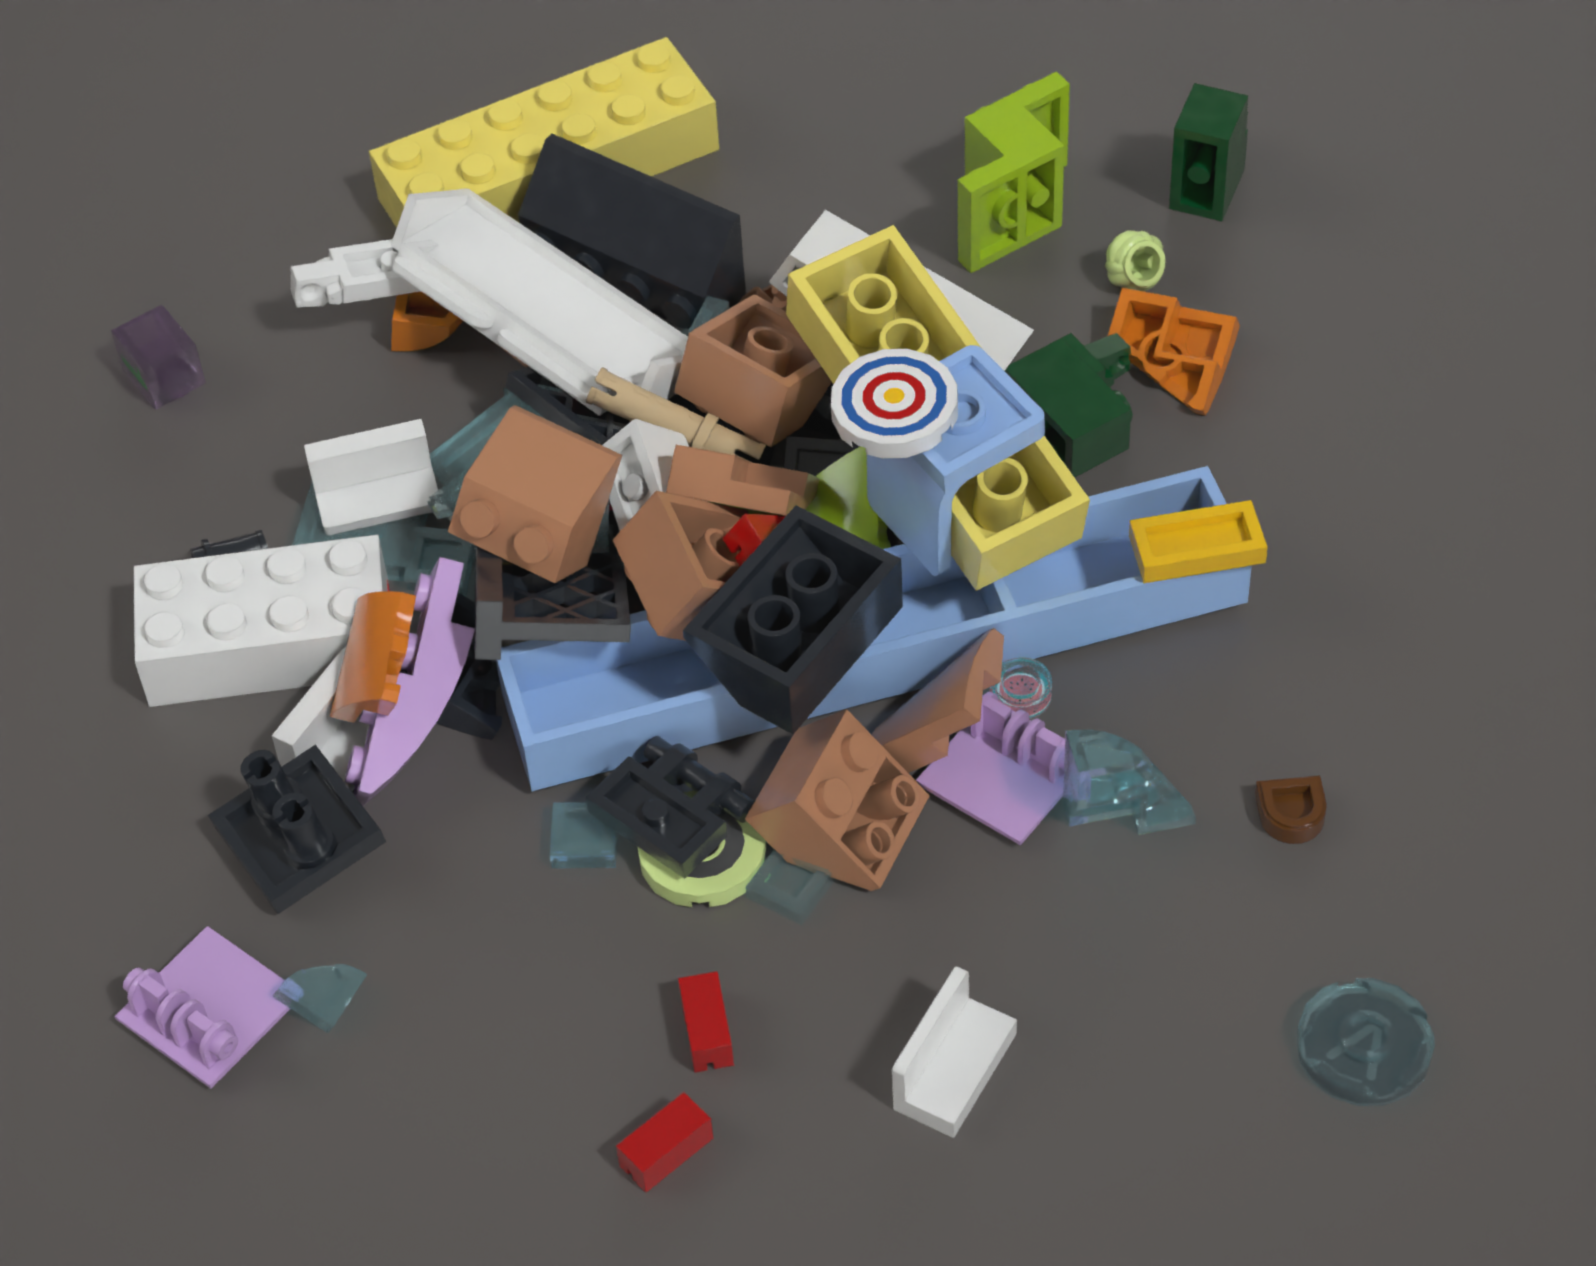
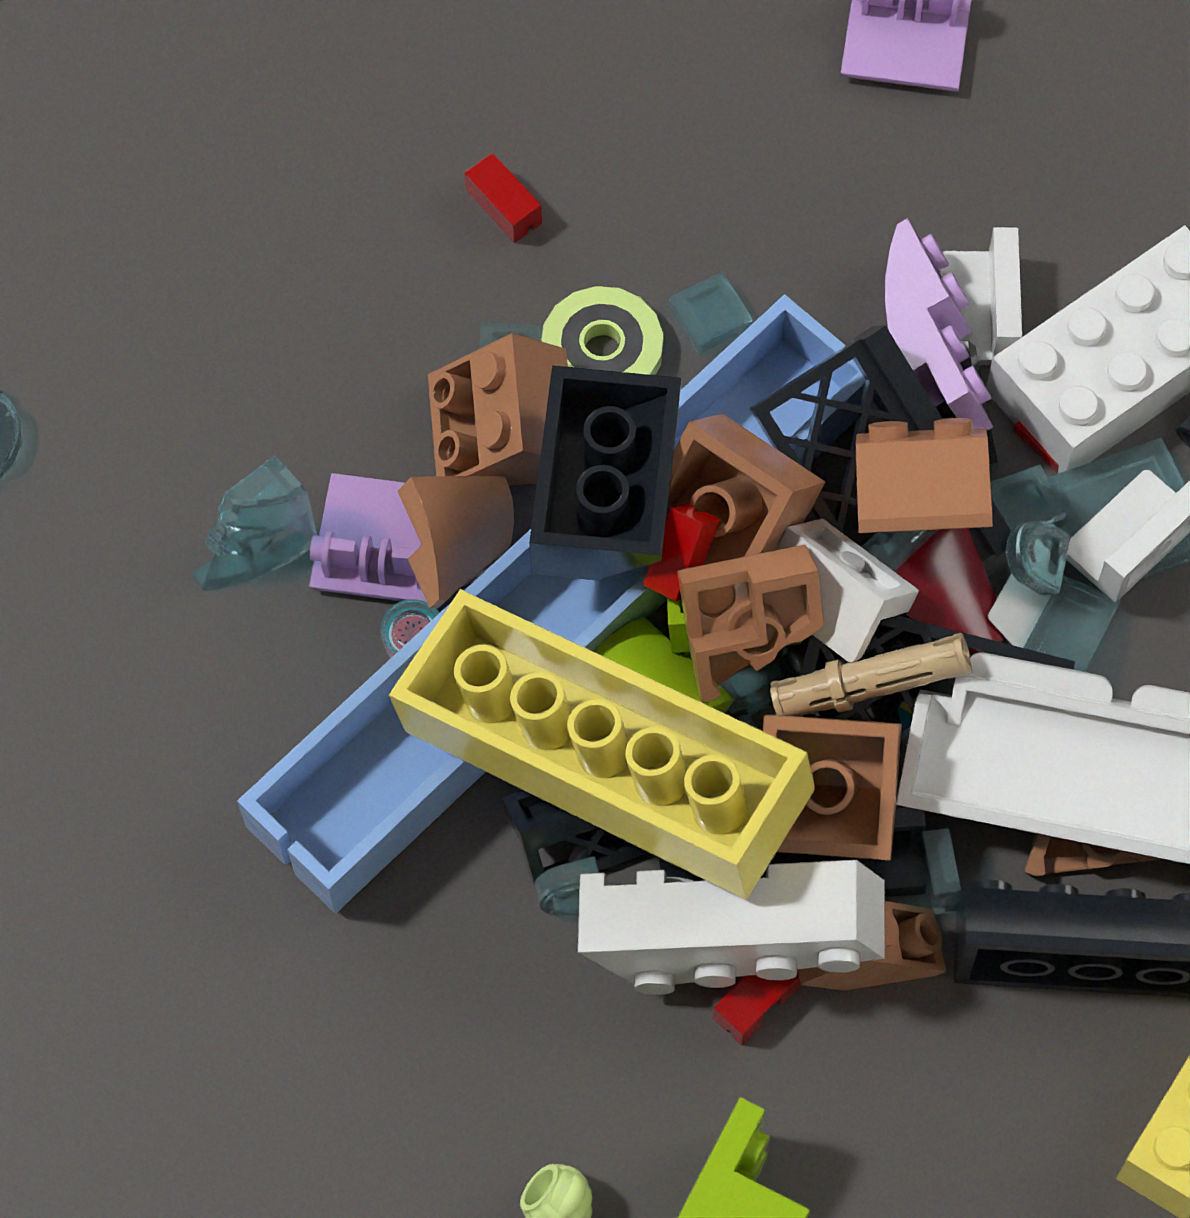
camera: 150 degrees right, 15 degrees up
(294, 825) = (946, 187): black plate -> none
(321, 992) = (824, 77): clear light blue tile -> none
(374, 655) = (966, 300): orange slope -> none
(660, 817) = (641, 322): black plate -> none
(664, 1142) = (468, 104): red piece -> none
(894, 403) = (599, 624): white tile -> none
(950, 1057) = (286, 258): white panel -> none
(991, 425) = (540, 668): light blue piece -> none
(1072, 387) = (528, 965): dark green hinge -> none
(1176, 344) = (465, 1114): orange slope -> none
(1197, 541) = (291, 778): yellow tile -> none
(1291, 808) = (110, 625): reddish brown tile -> none

